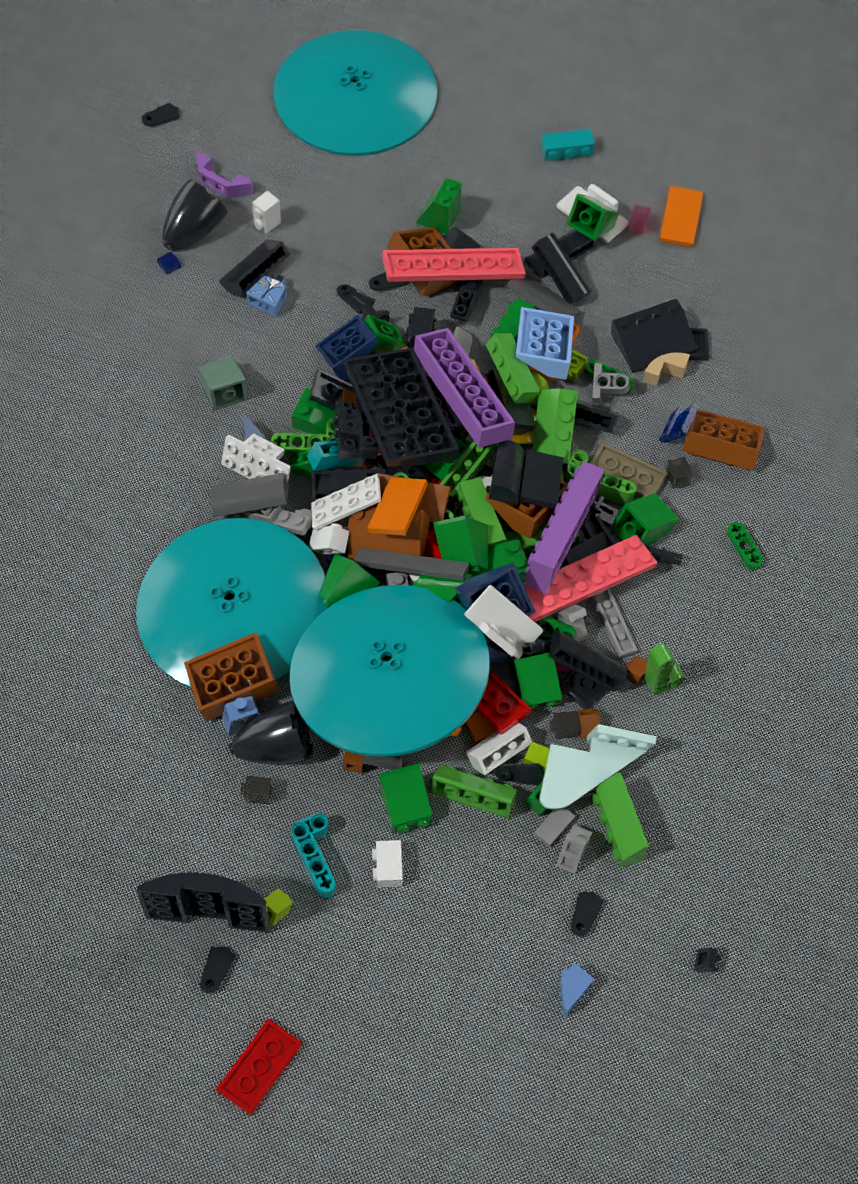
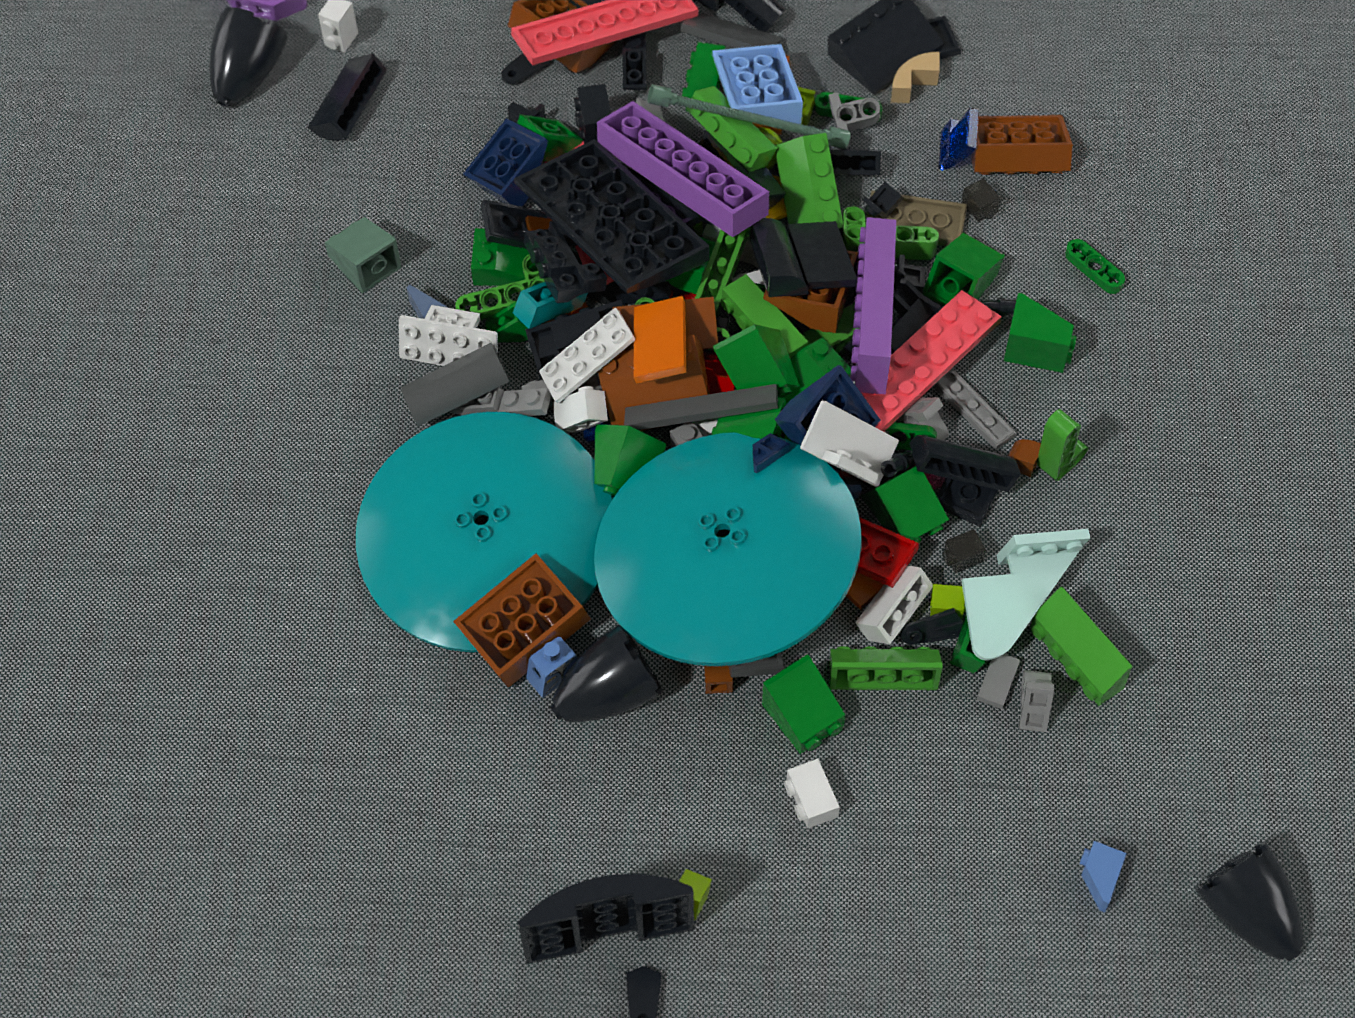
camera: 15 degrees left, 0 degrees up
(169, 263) = (232, 123): clear blue plate -> none
(256, 790) = (608, 754): clear smoke brick -> none
(268, 294) = (378, 127): medium blue torso -> none
(315, 859) = (718, 816): teal beam -> none
(354, 297) = (489, 101): black piece -> none
(442, 609) = (768, 451): none -> dark blue tile
(467, 331) = (663, 97): none -> sand green hose
(585, 912) = (1079, 775): black piece -> none
(588, 721) = (992, 537): dark orange brick -> none
(605, 453) = (883, 201): none -> black bracket
(675, 1046) = (1256, 902): none -> black cylinder
(679, 585) = (1039, 337): none -> green slope
(706, 960) = (1250, 785): black tile -> none

